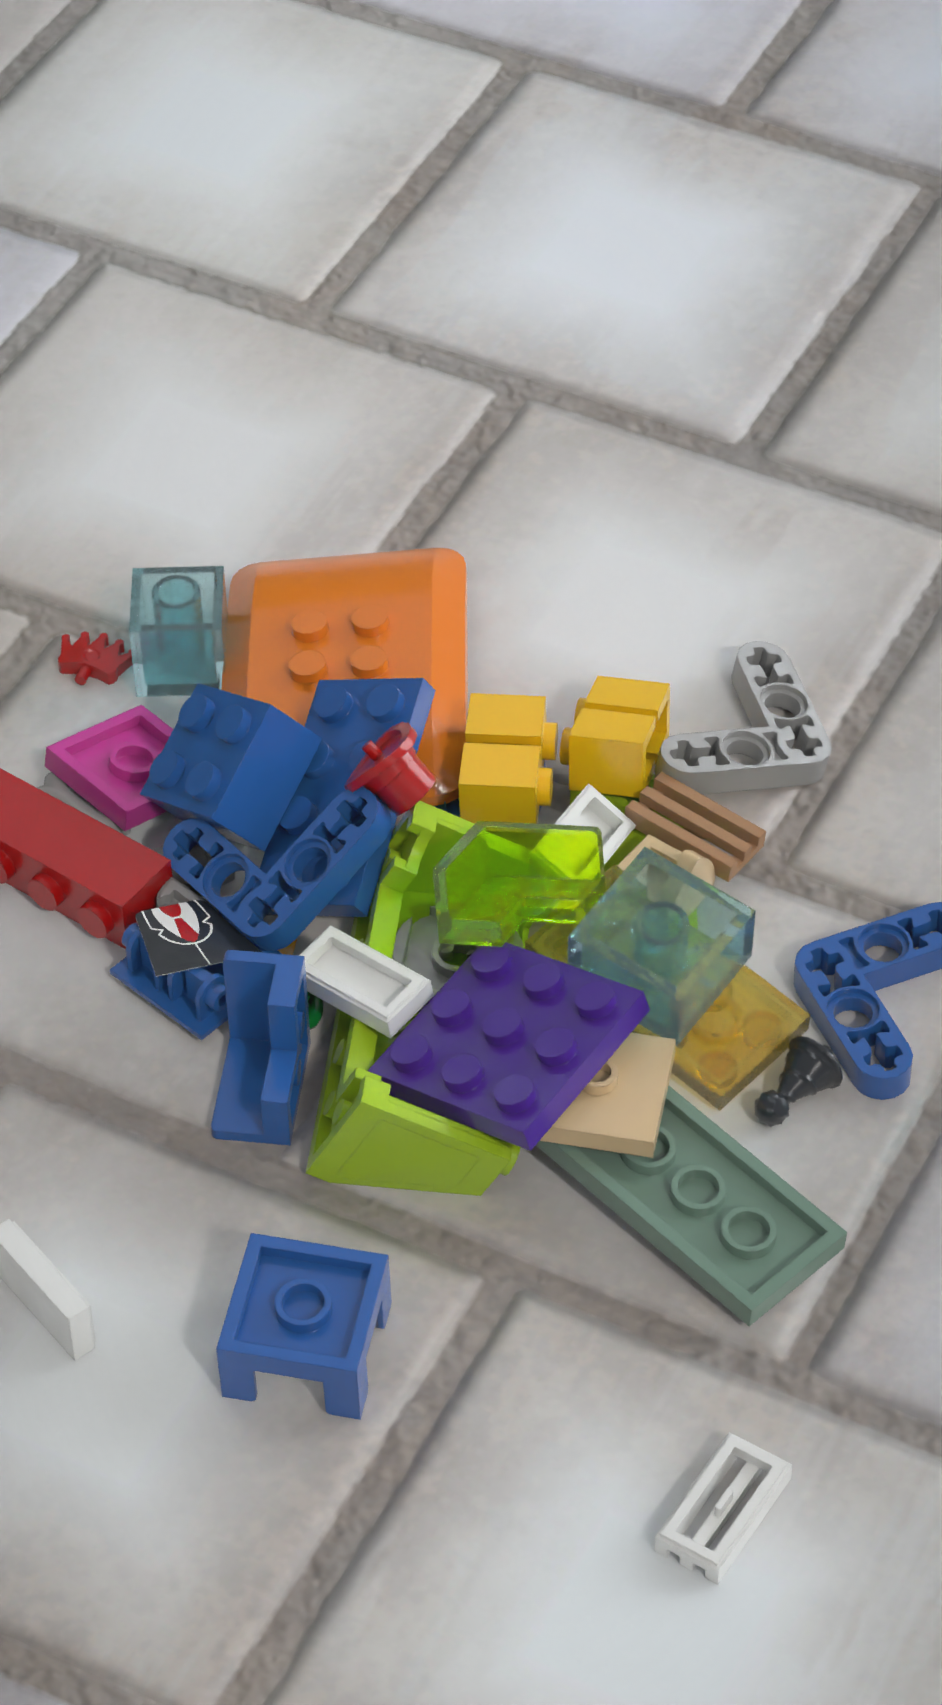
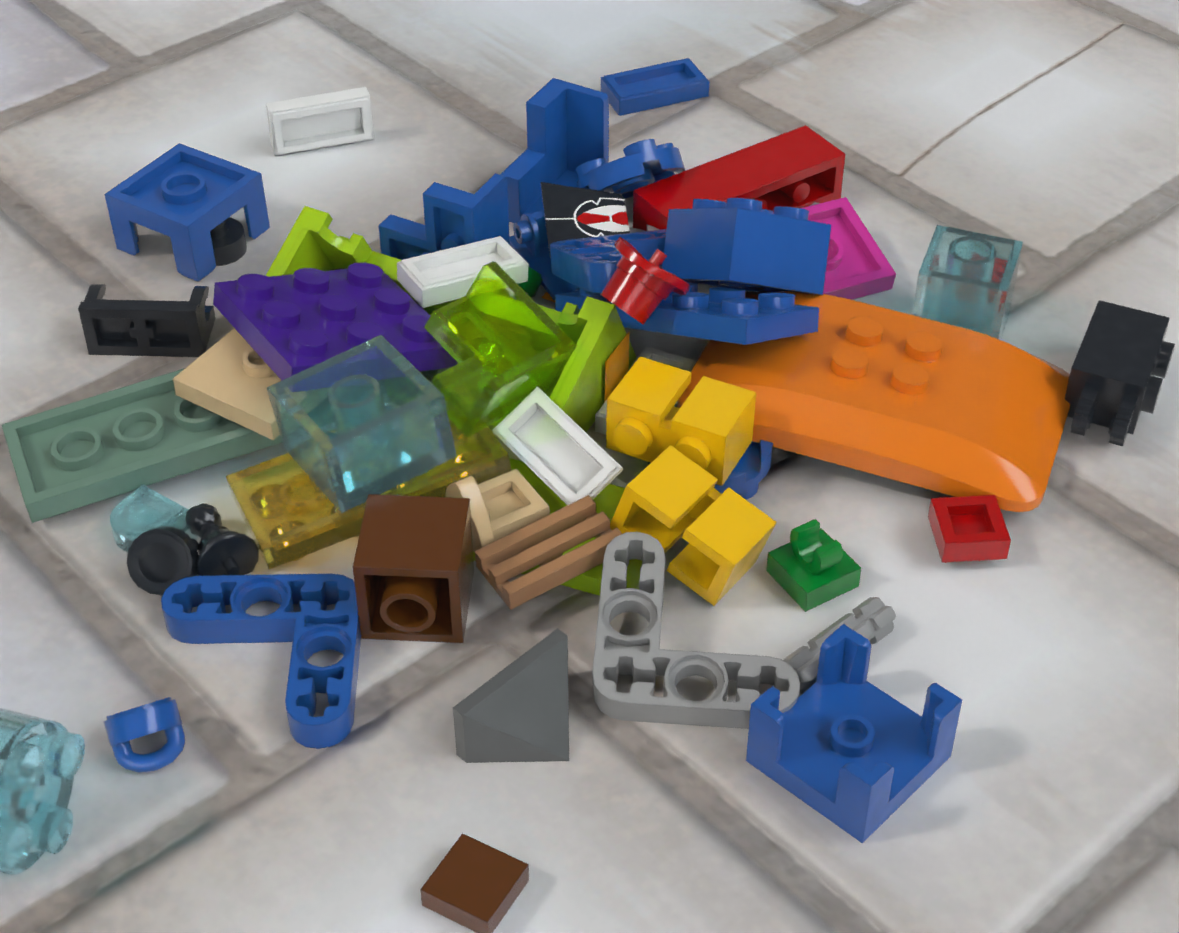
camera: 110 degrees right, 5 degrees down
(48, 921) = (641, 166): none -> blue plate
(58, 1028) = (563, 131): none -> blue panel
(249, 524) = (1118, 370): none -> black hinge
(505, 589) = (969, 528): none -> red plate
(506, 1286) = (146, 325): none -> black hinge
(594, 660) = (813, 567): none -> green tile
(680, 644) = (871, 621): none -> light grey axle
(784, 605) = (850, 743): none -> blue panel
(785, 883) = (414, 568): none -> reddish brown head
(796, 1154) = (144, 511): none -> clear light blue tile
(850, 1097) = (161, 558): none -> black tile
(863, 806) = (519, 710): none -> dark grey slope

